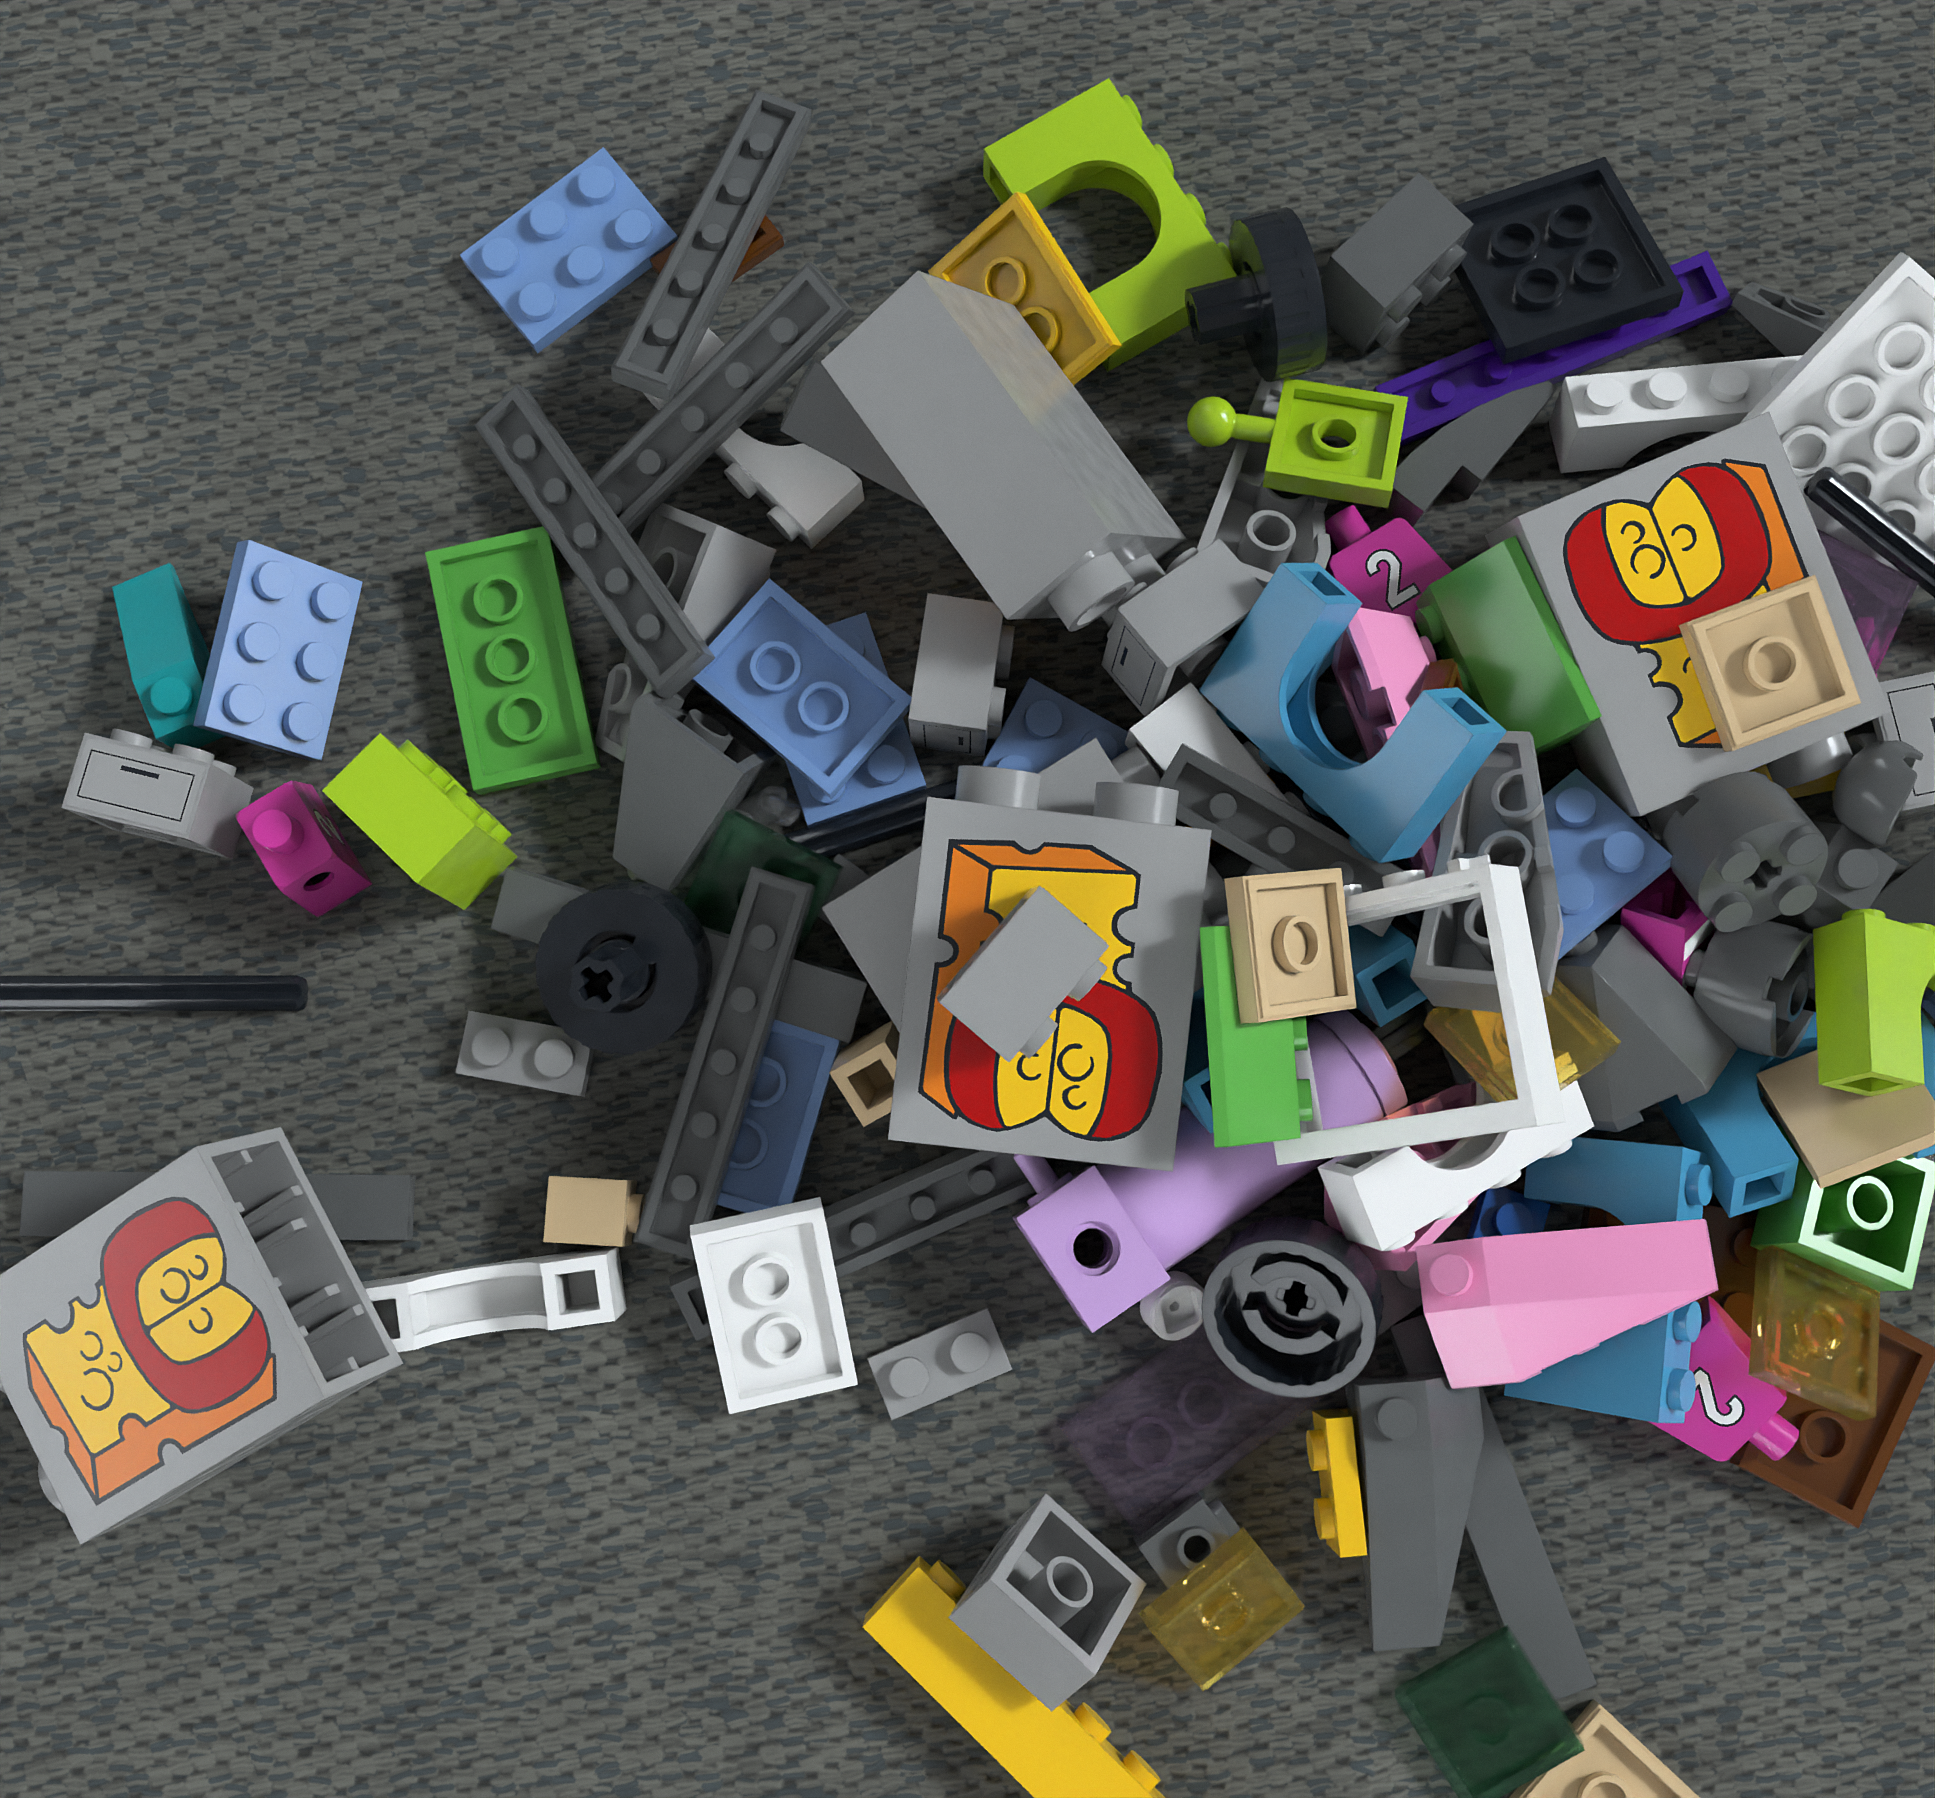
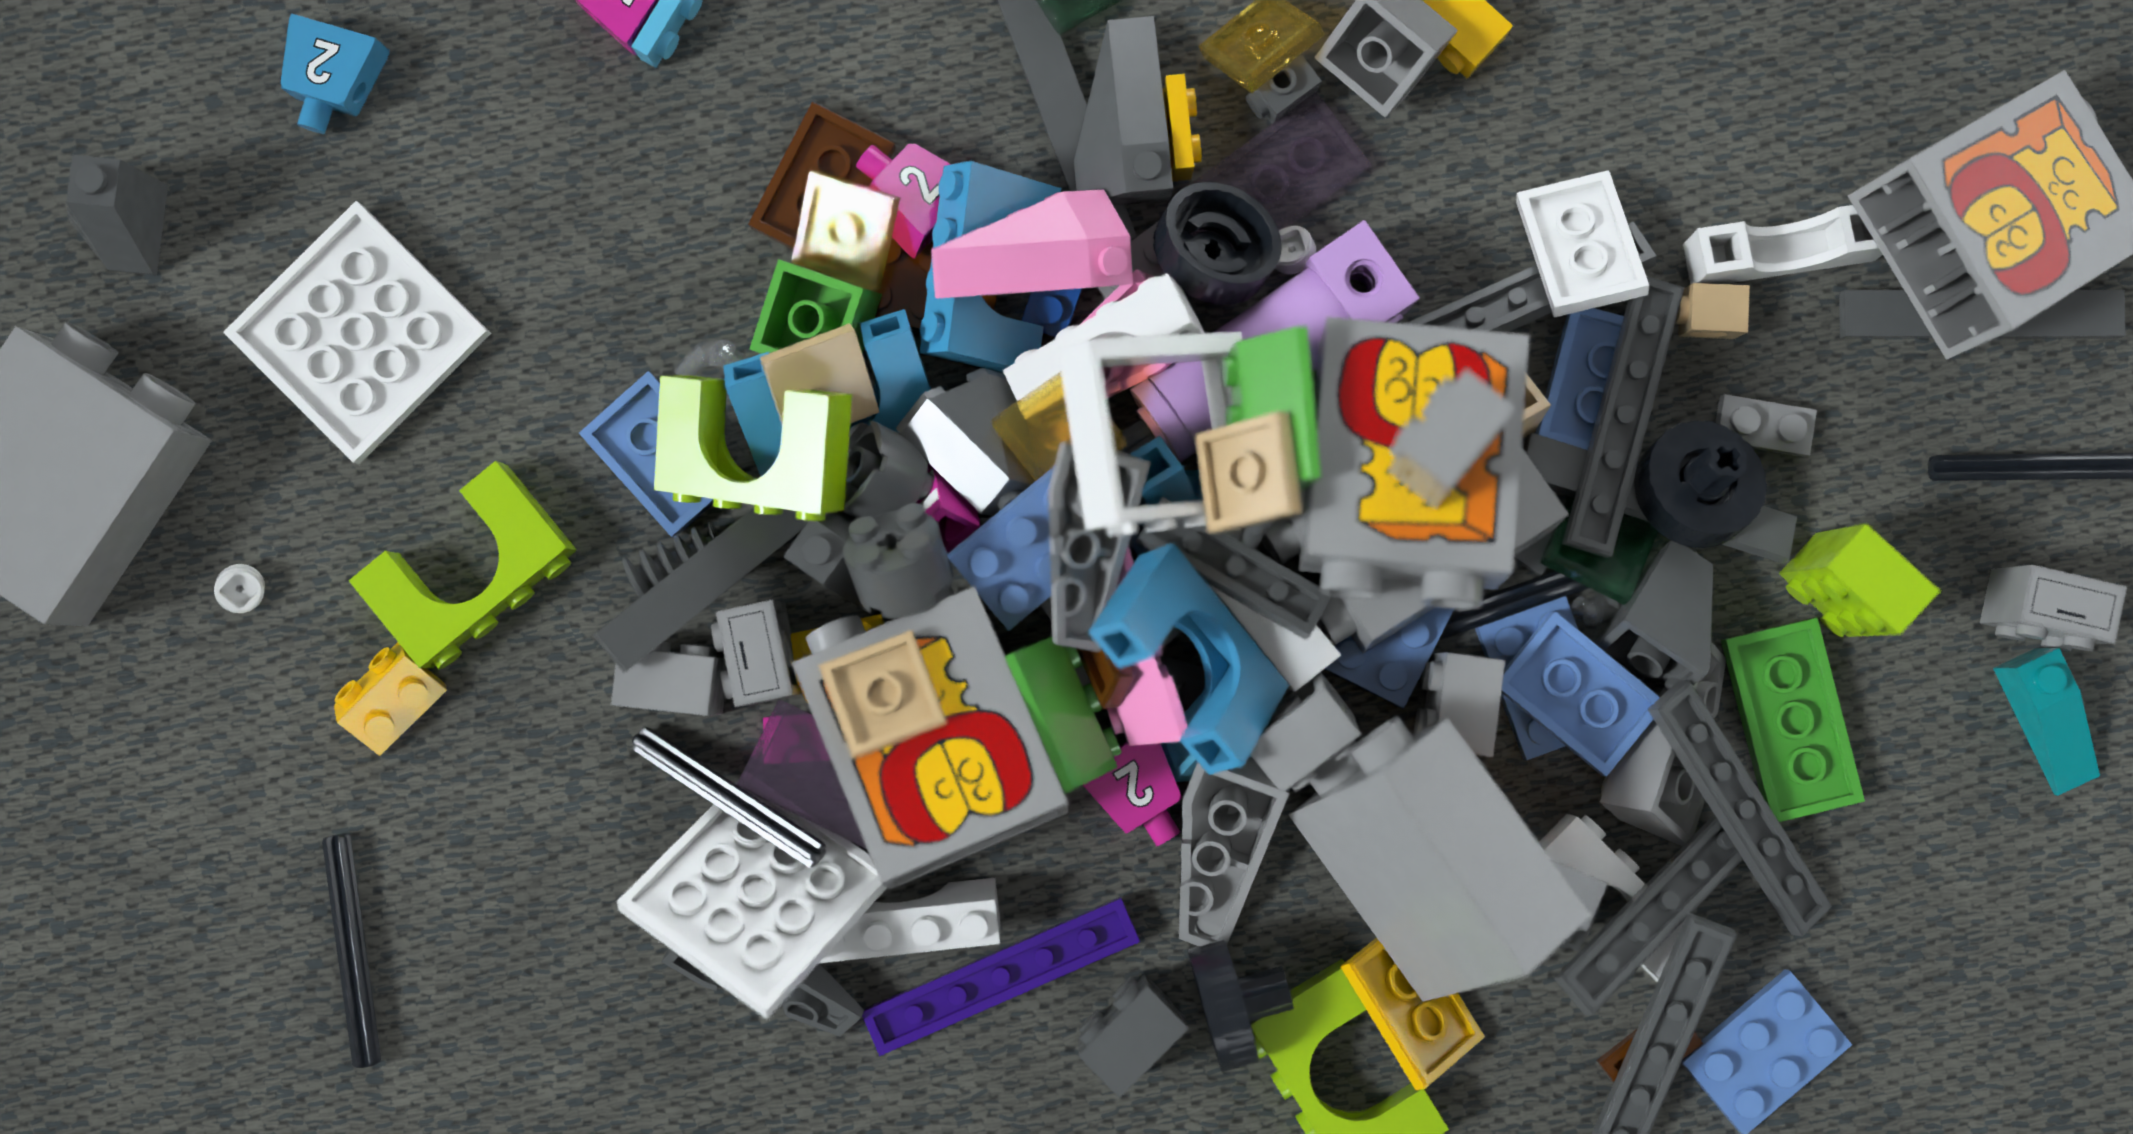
camera: 175 degrees left, 5 degrees up
(278, 652) = (1971, 719): medium blue plate -> none
(299, 841) = (1950, 567): dark pink torso -> none
(939, 1363) = (1457, 209): light grey plate -> none
(1297, 455) = (1199, 911): lime plate -> none
(1464, 451) = (1073, 890): dark grey slope -> none
(1561, 261) = (1000, 1044): black plate -> none
(1875, 788) = (802, 611): dark grey hair -> none

